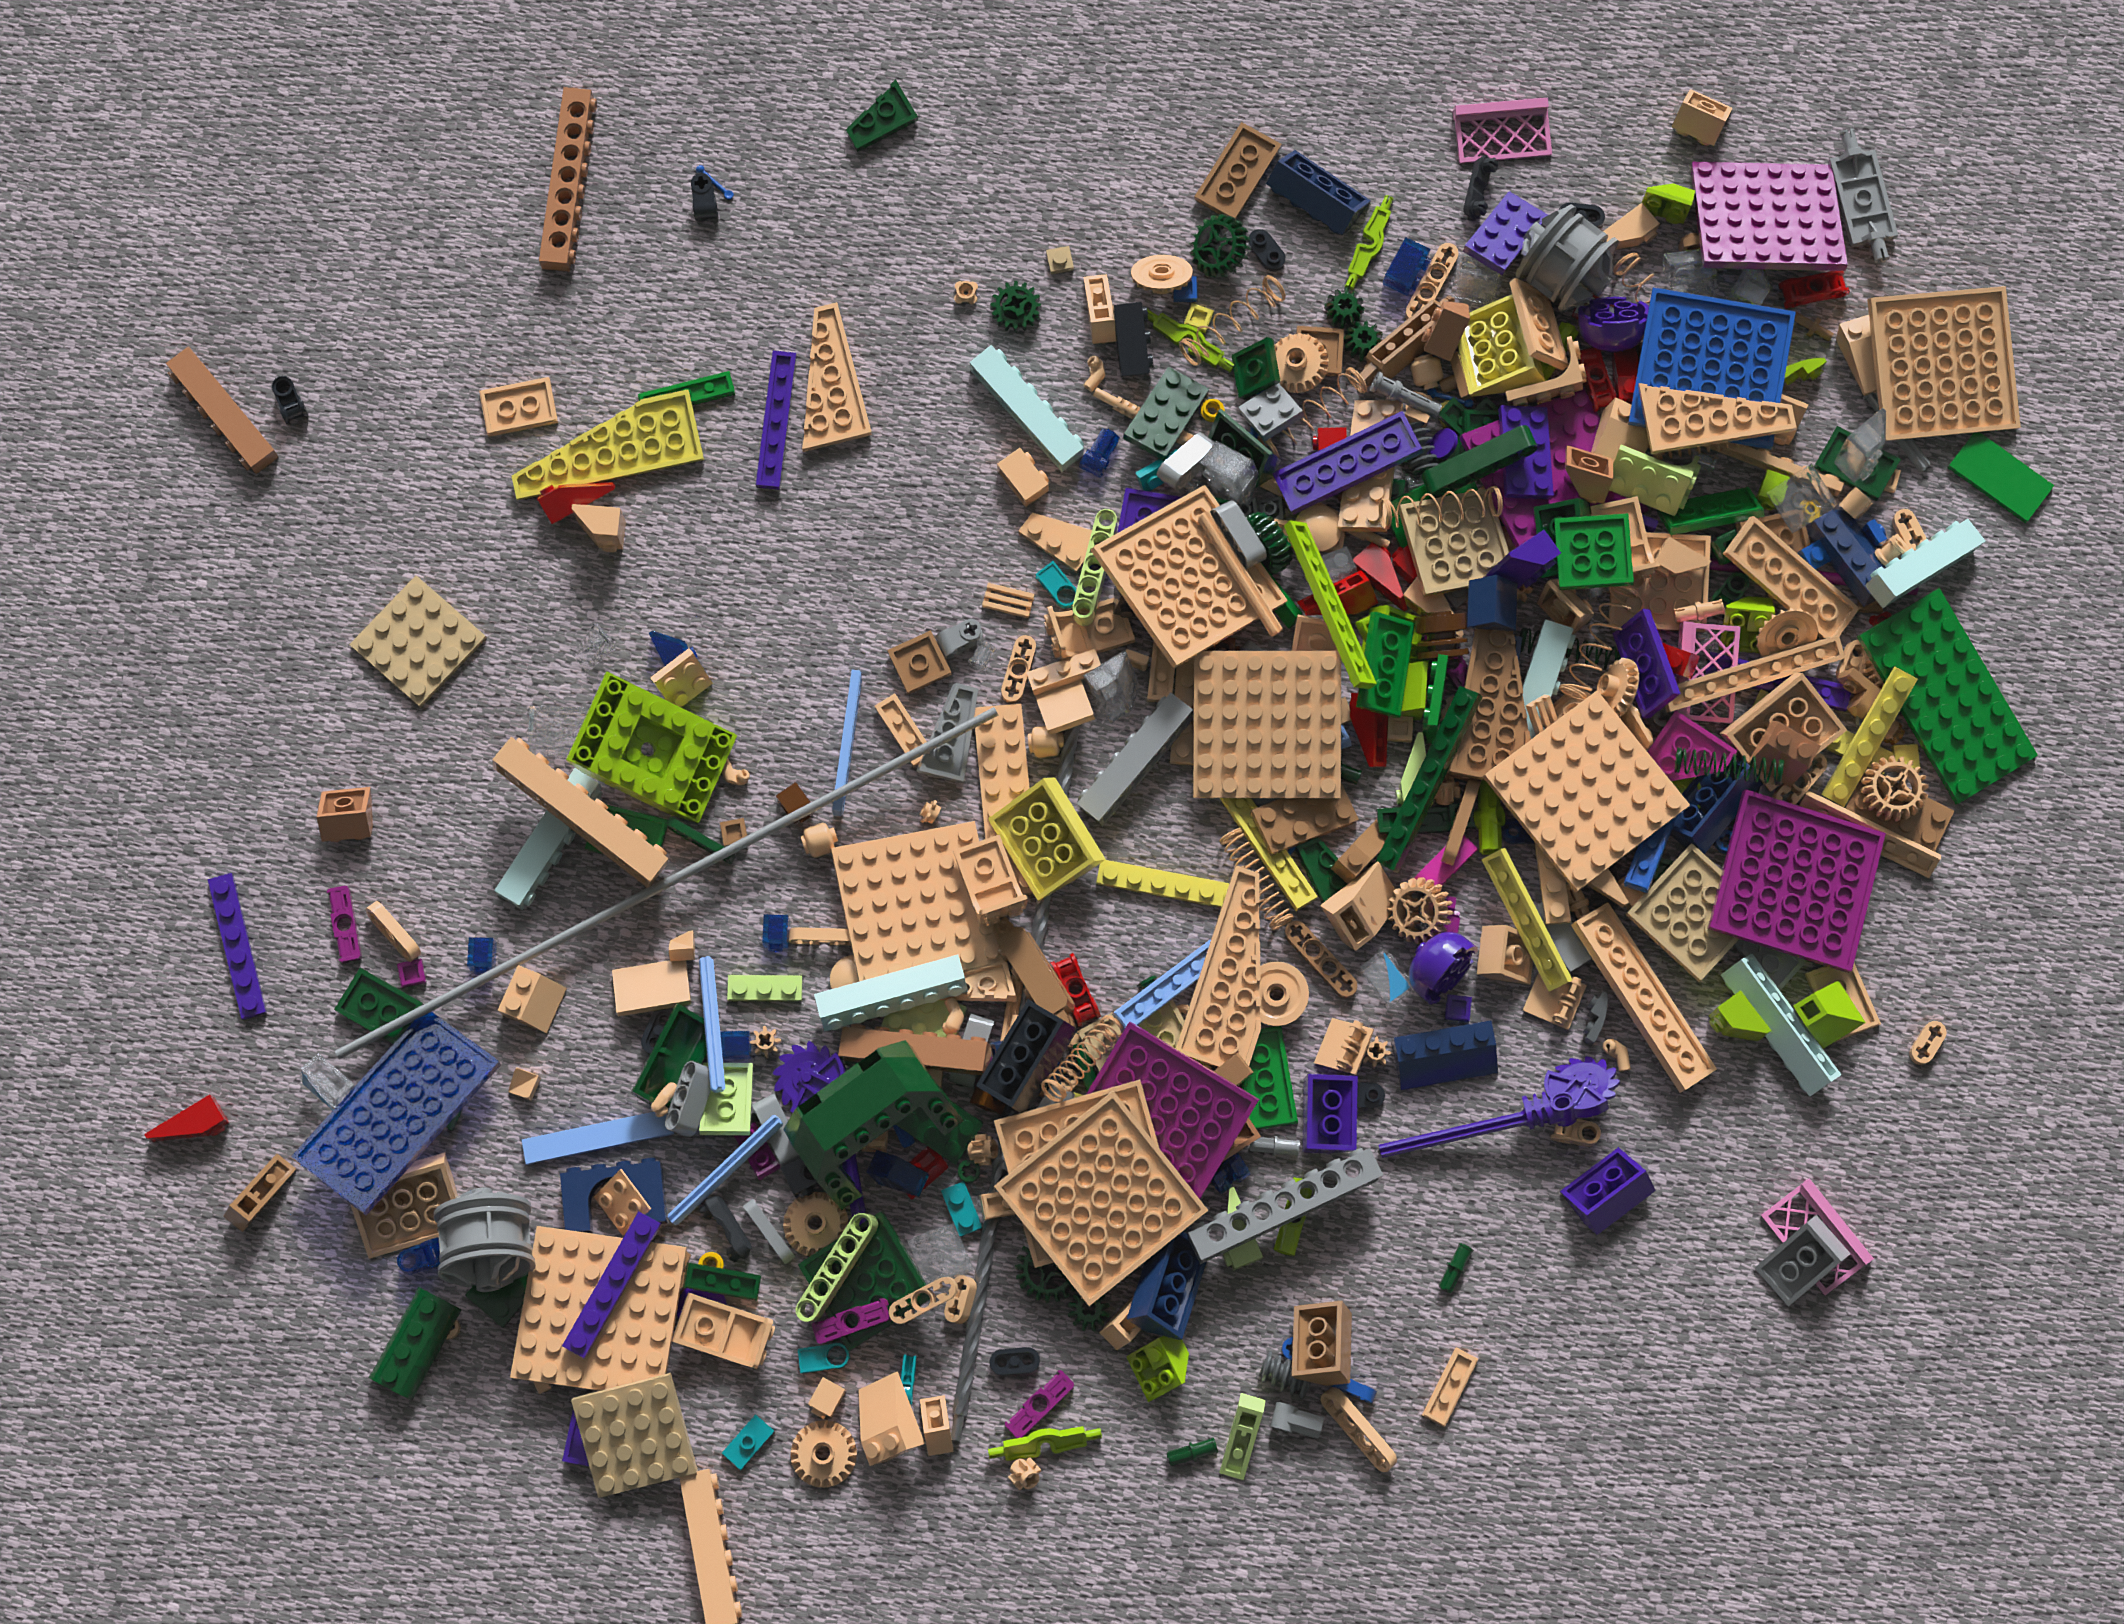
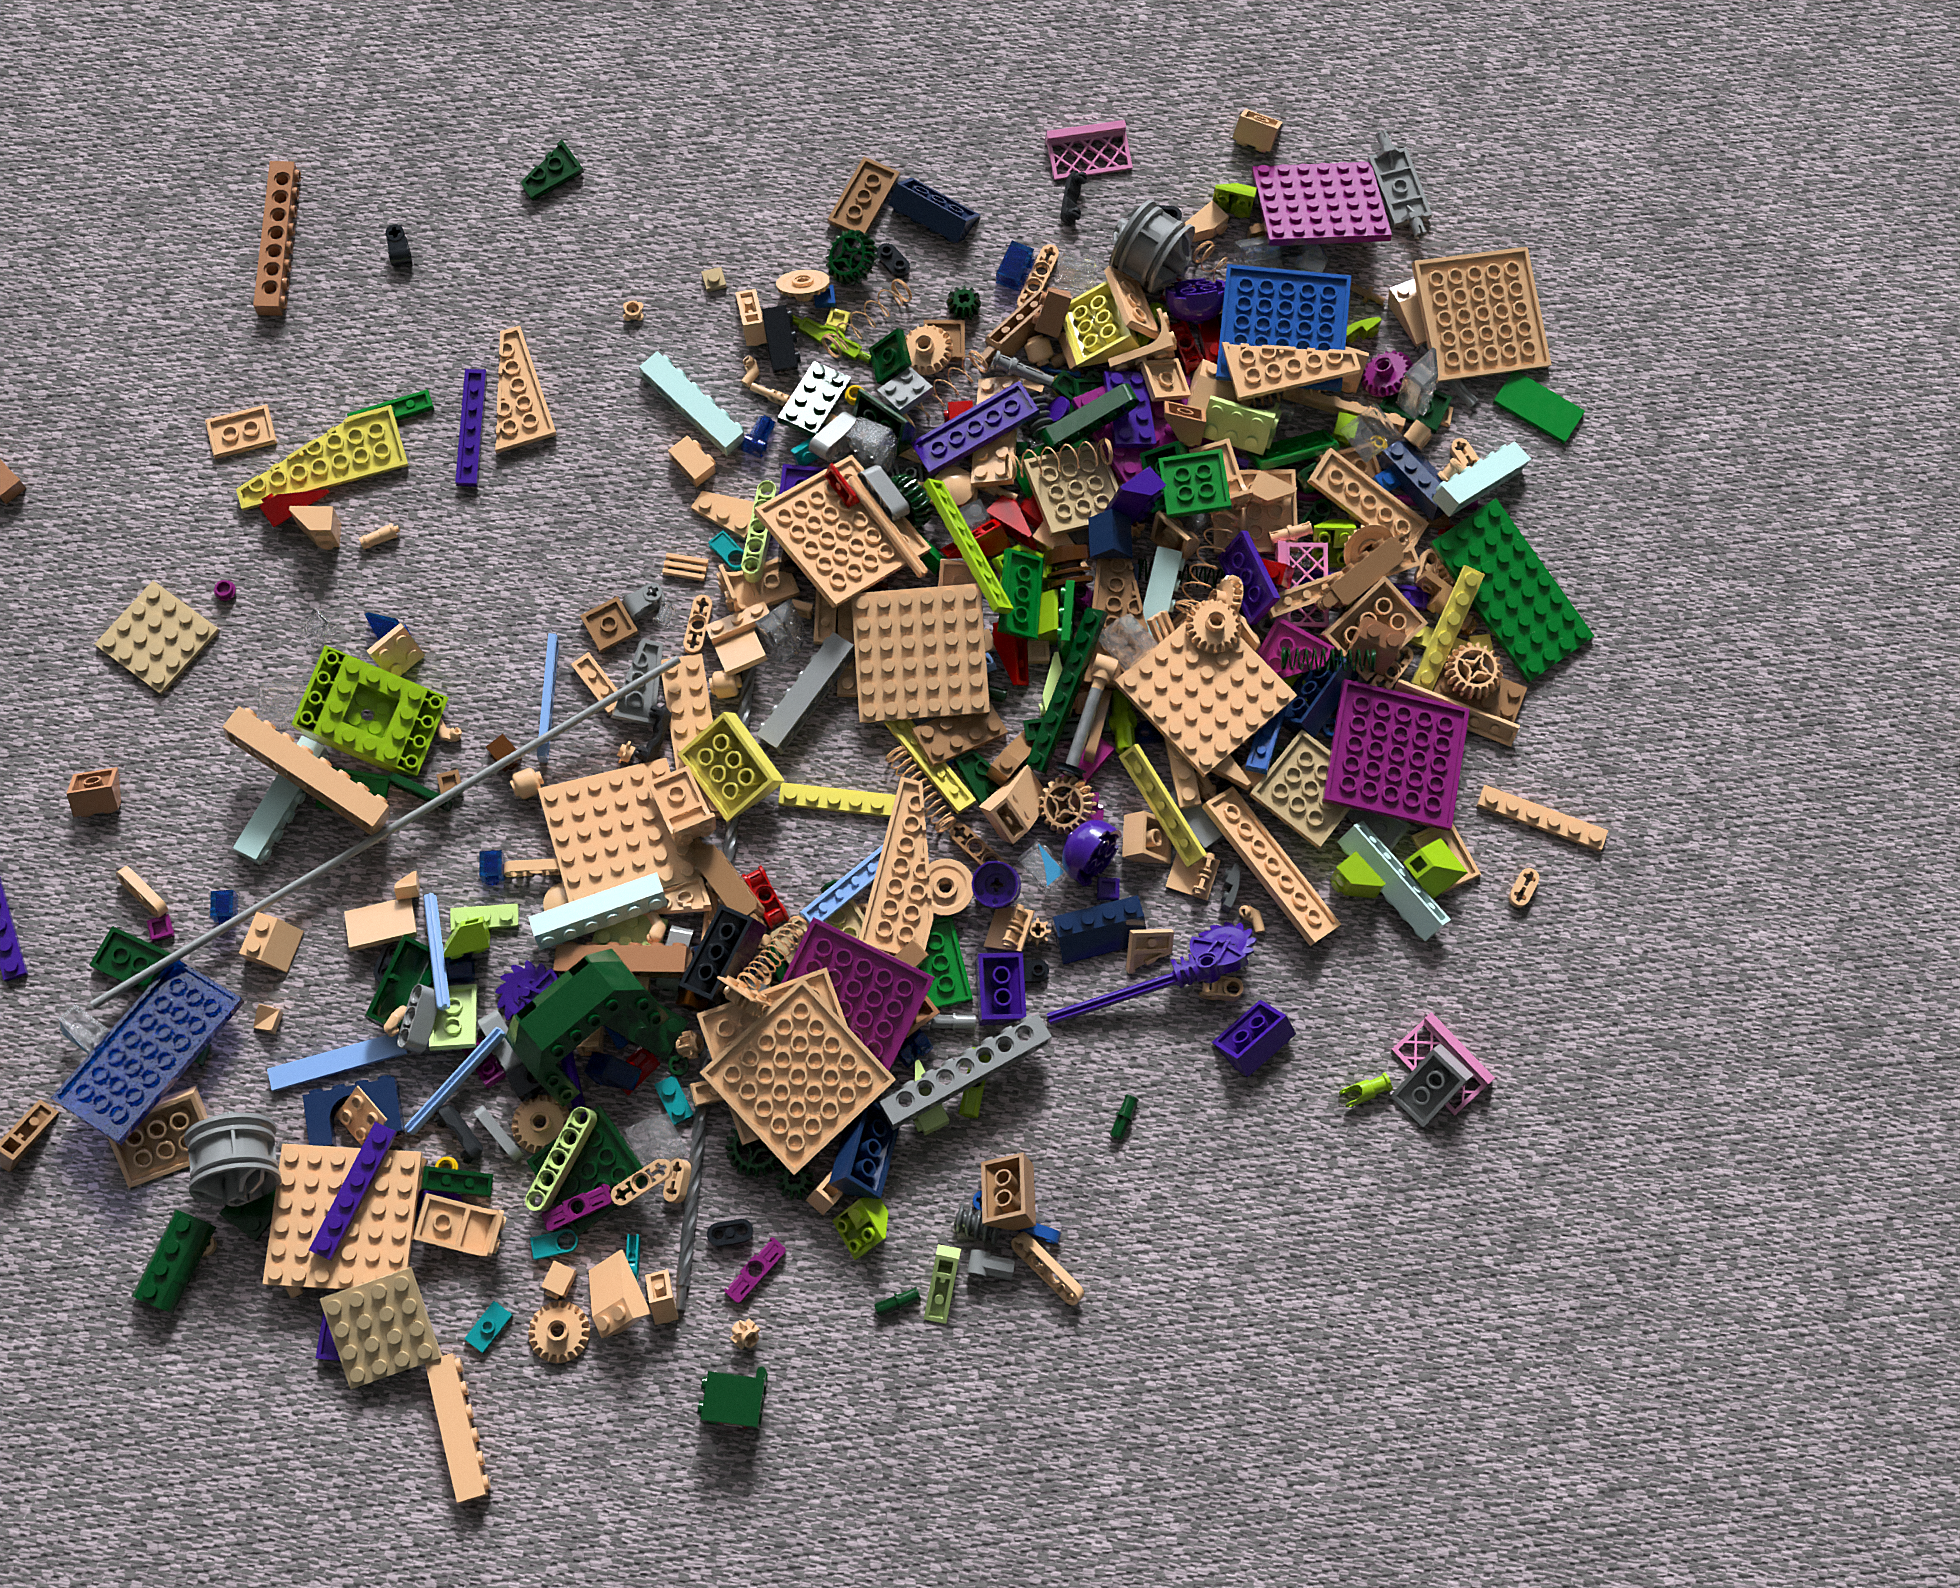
camera: 10 degrees left, 5 degrees down
(289, 403) = (33, 440): black piece -> none
(342, 908) = (95, 874): magenta piece -> none
(423, 1254) = (178, 1179): clear blue piece -> none
(494, 592) = (224, 590): none -> magenta plate
(668, 541) = (379, 536): none -> light nougat piece
(727, 193) = (420, 243): blue hinge -> none
(746, 1012) = (468, 936): none -> lime slope
(765, 1048) = (487, 958): light nougat gear -> none
(973, 775) = (653, 746): none -> black piece
(1008, 1544) = (733, 1399): none -> dark green container
(1022, 298) = (673, 327): dark green gear -> none
(1031, 1445) = (749, 1308): lime piece -> none
(1042, 1101) = (742, 996): none -> light nougat hinge
(1191, 524) = (841, 486): none -> red slope
(1323, 1007) = (989, 874): none -> dark purple wheel
(1354, 340) = (974, 324): dark green gear -> none
(1365, 253) = (977, 257): lime piece -> none
(1449, 1387) = (1127, 1224): light nougat tile -> none
(1471, 763) = (1102, 672): none -> piece
(1497, 1078) = (1147, 947): none -> light nougat wing
(1502, 233) = (1094, 232): plate -> none
(1503, 730) = (1127, 641): none -> clear slope
(1569, 419) = (1165, 379): none -> light nougat plate
(1595, 732) = (1211, 637): none -> light nougat gear
(1732, 1258) = (1369, 1089): none -> lime piece
(1778, 667) = (1364, 573): none -> medium nougat hinge
(1798, 290) = (1377, 259): red piece -> none
(1827, 437) = (1385, 373): none -> magenta gear
(1875, 533) = (1436, 458): blue plate -> none
(1957, 963) = (1542, 818): none -> light nougat plate

